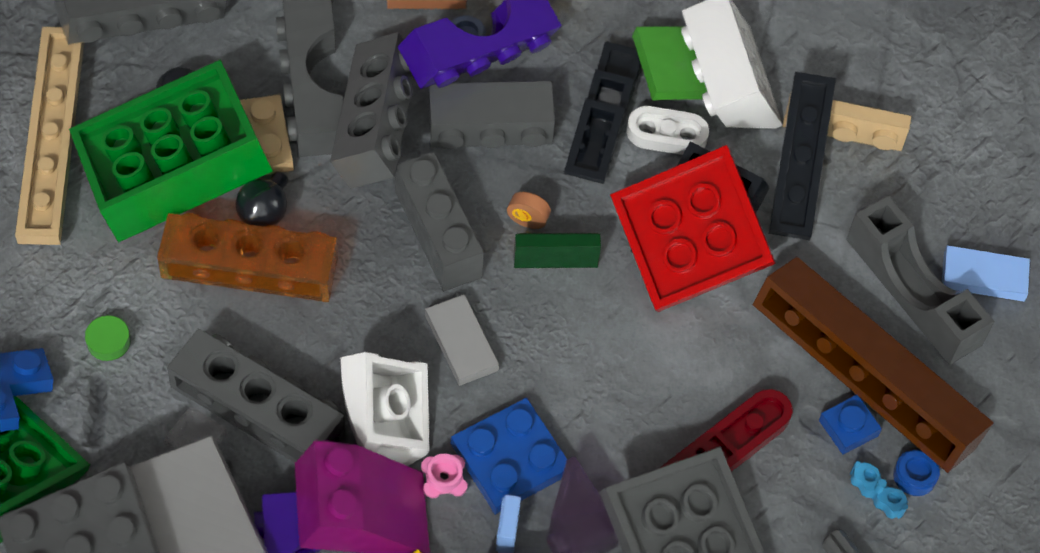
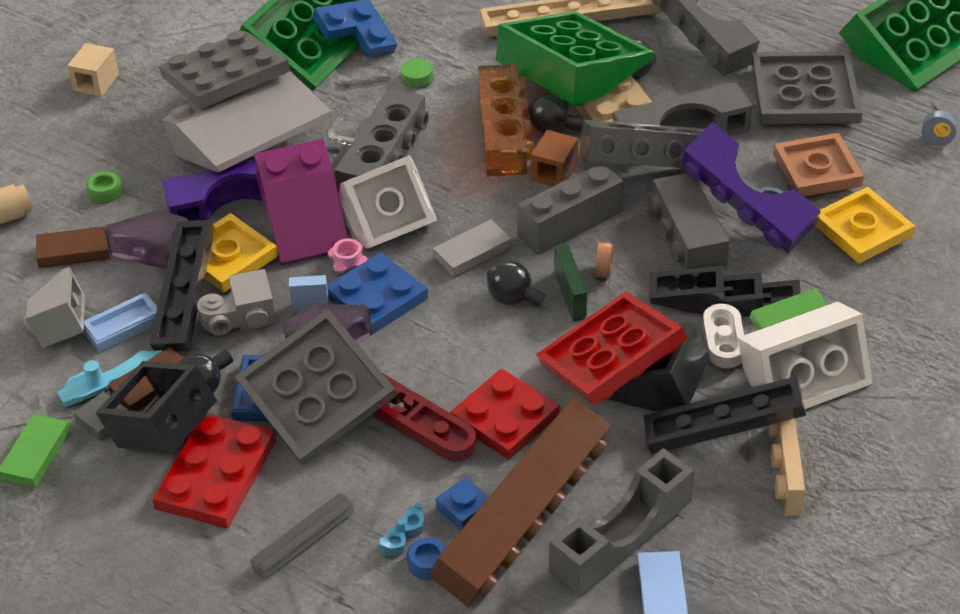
camera: 85 degrees right, 15 degrees down
(343, 216) = (554, 158): none -> dark orange brick
(544, 308) = (511, 283): none -> black piece
(729, 360) = (506, 413): none -> red plate

